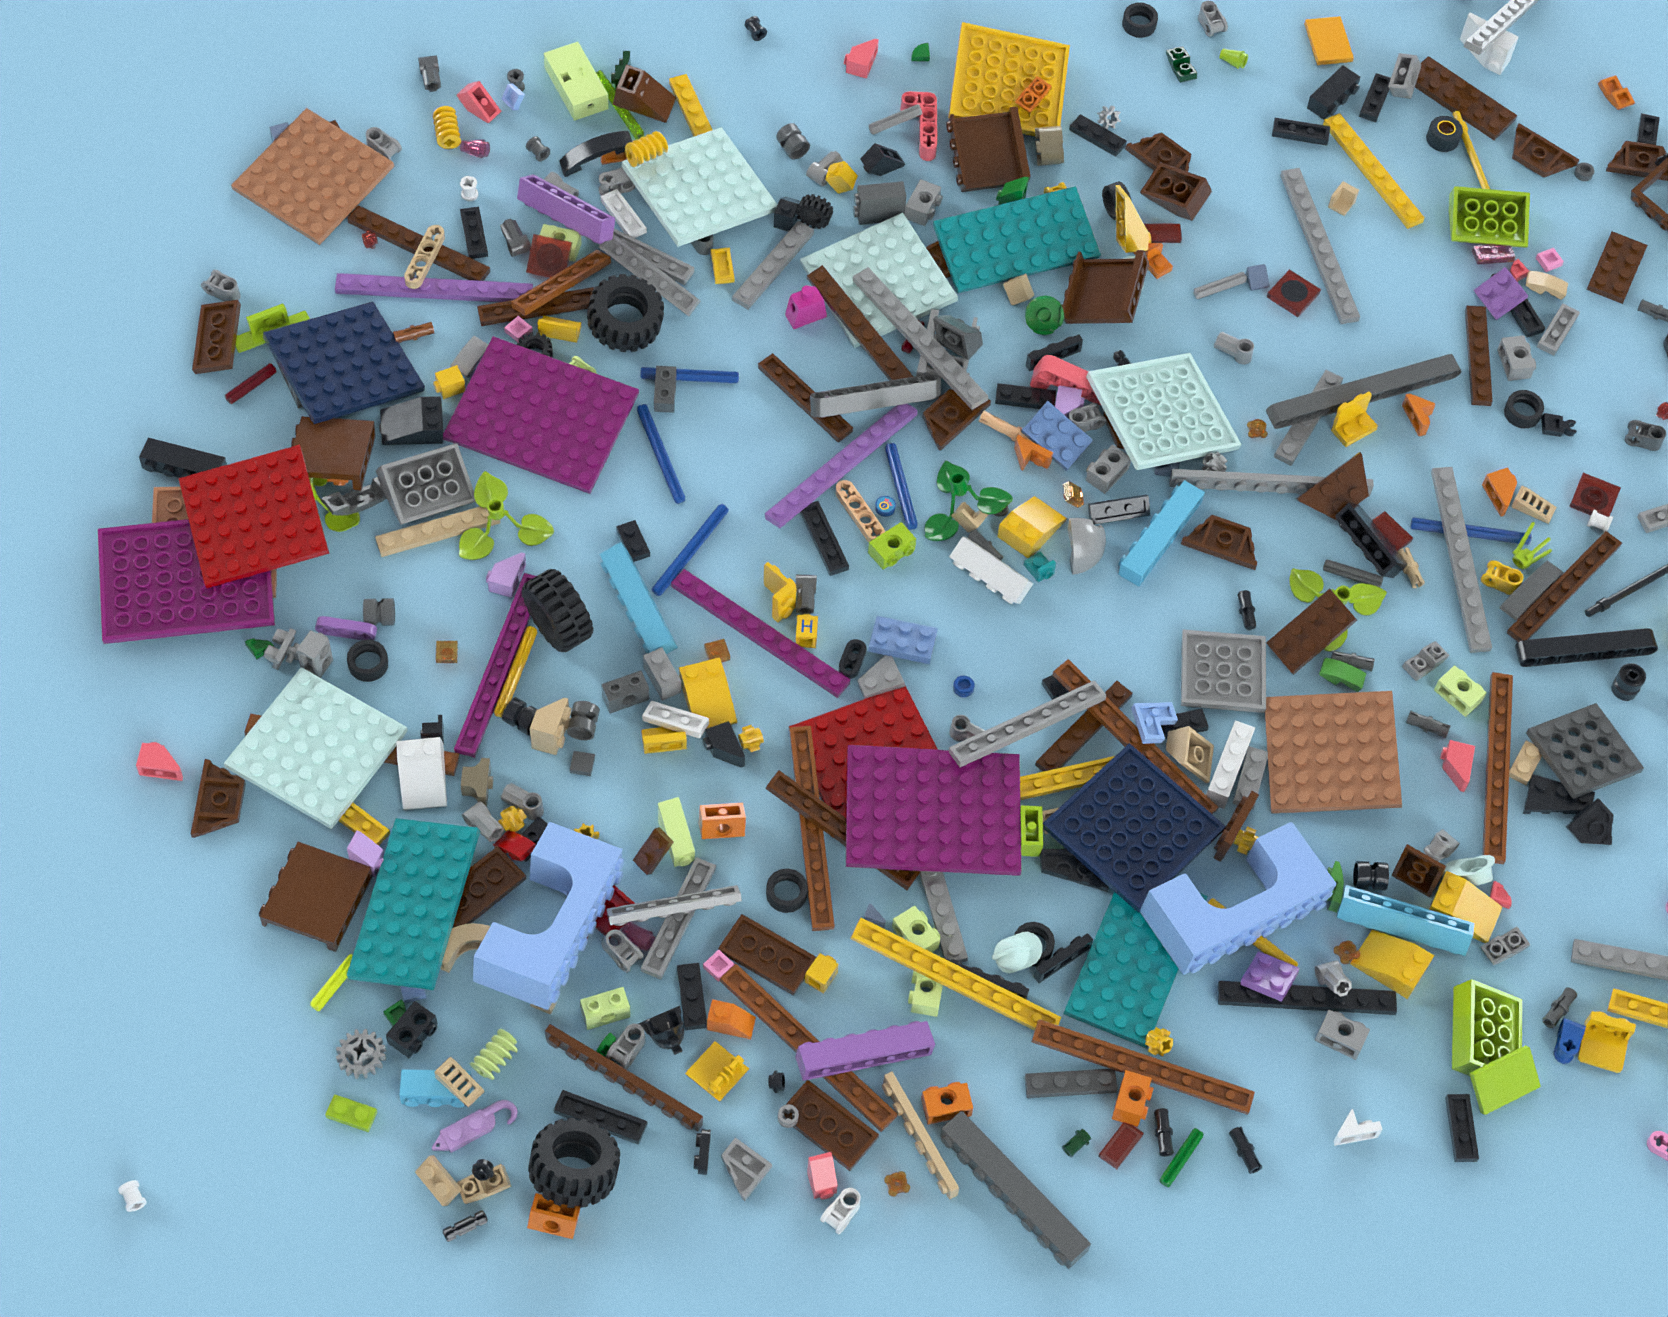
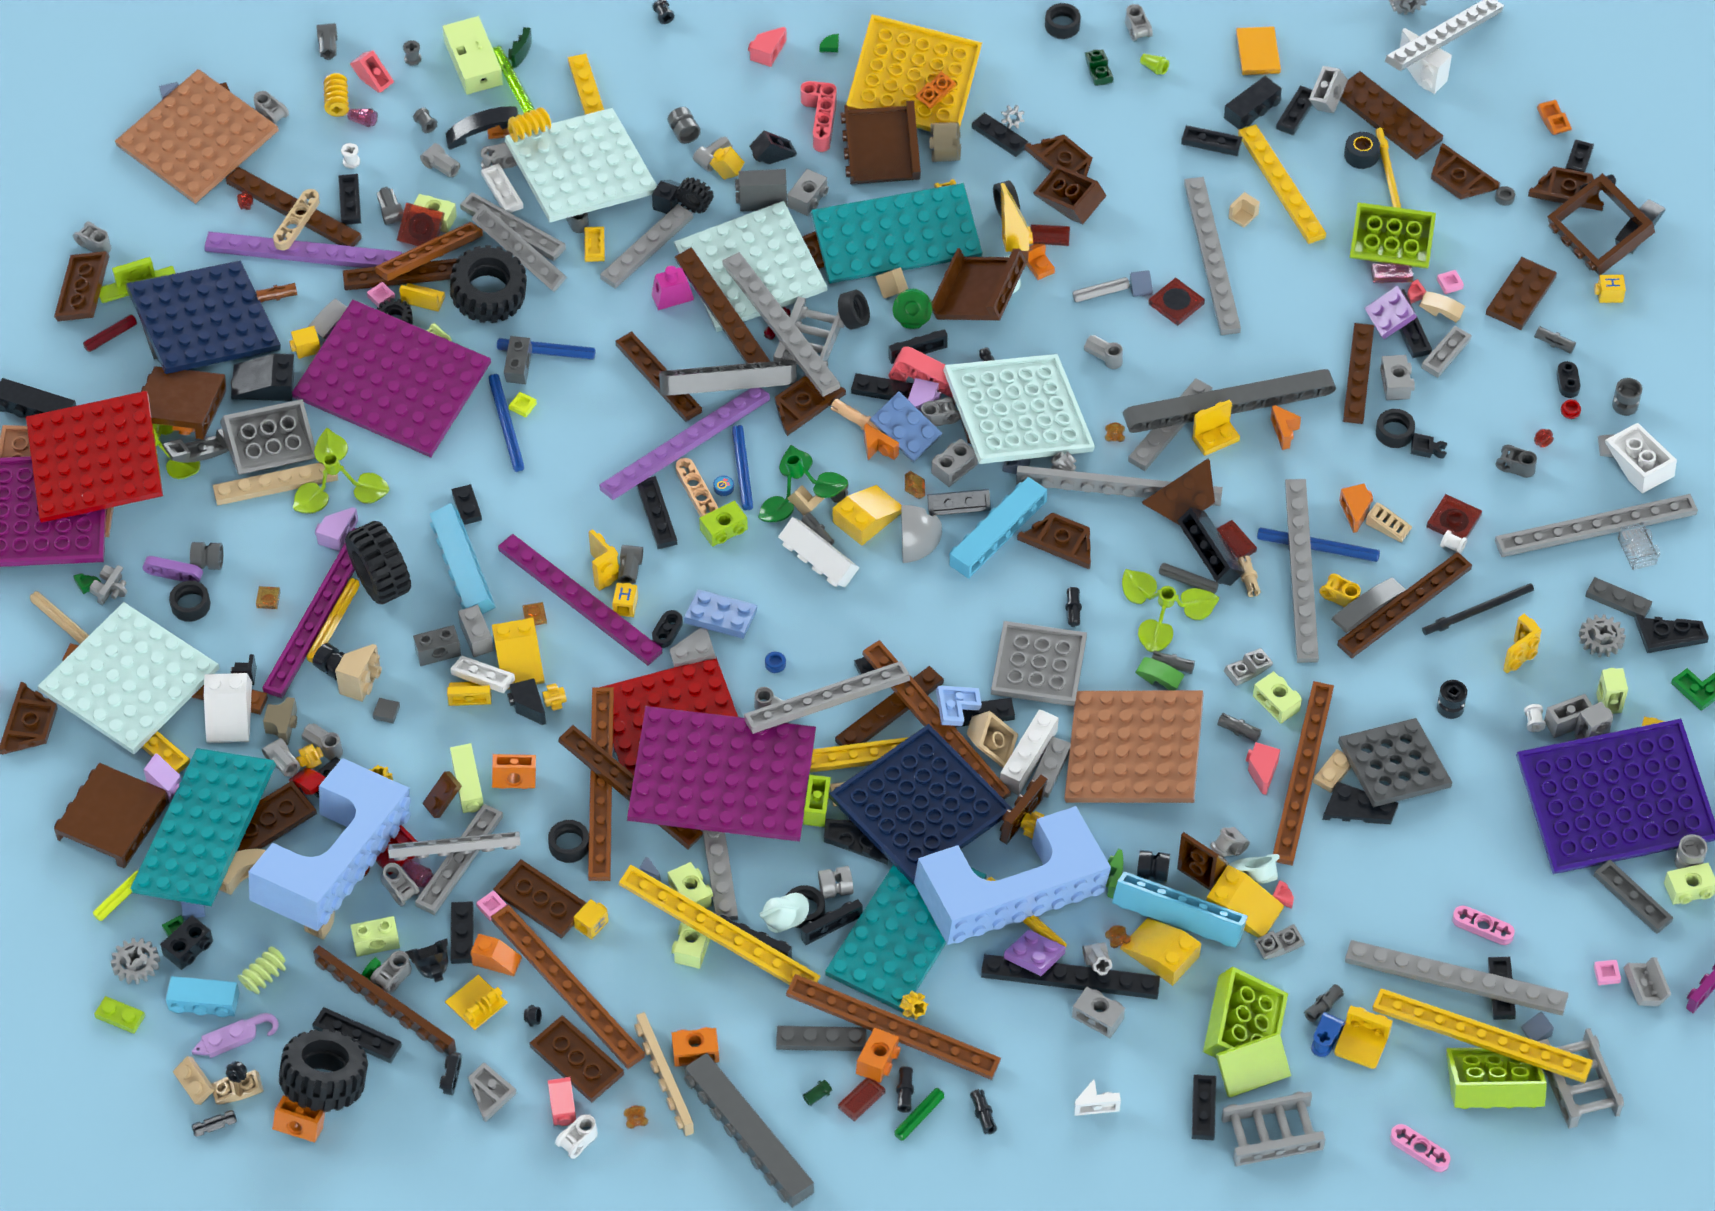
camera: 10 degrees right, 5 degrees down
(236, 687) = (58, 617): none -> tan axle
(315, 653) = (138, 589): light grey brick -> none
(451, 1064) = (213, 980): tan slope -> none
(513, 96) = (406, 68): light blue plate -> none
(566, 208) = (442, 179): medium lavender brick -> none
(583, 720) = (391, 669): dark grey wheel -> none
(643, 95) = (537, 72): reddish brown slope -> none
(674, 433) = (522, 404): none -> neon yellow tile
(689, 550) = (522, 515): blue axle -> none
(788, 1123) = (535, 1051): light grey bush -> none
(864, 1050) = (621, 991): medium lavender brick -> none
(895, 119) = (791, 108): light grey axle -> none
(957, 335) = (818, 323): dark grey slope -> none
(987, 319) = (853, 309): none -> black tyre
(1013, 191) = (900, 184): green slope -> none
(1040, 567) = (870, 553): teal bracket -> none
(1054, 919) = (828, 880): none -> light grey wheel
(1311, 631) = (1132, 629): reddish brown plate -> none
(1524, 558) = (1367, 573): lime plant -> none
(1532, 1167) = (1269, 1149): none -> light grey fence
(1586, 647) = (1416, 664): black beam -> none
(1592, 824) = (1390, 833): black plate -> none

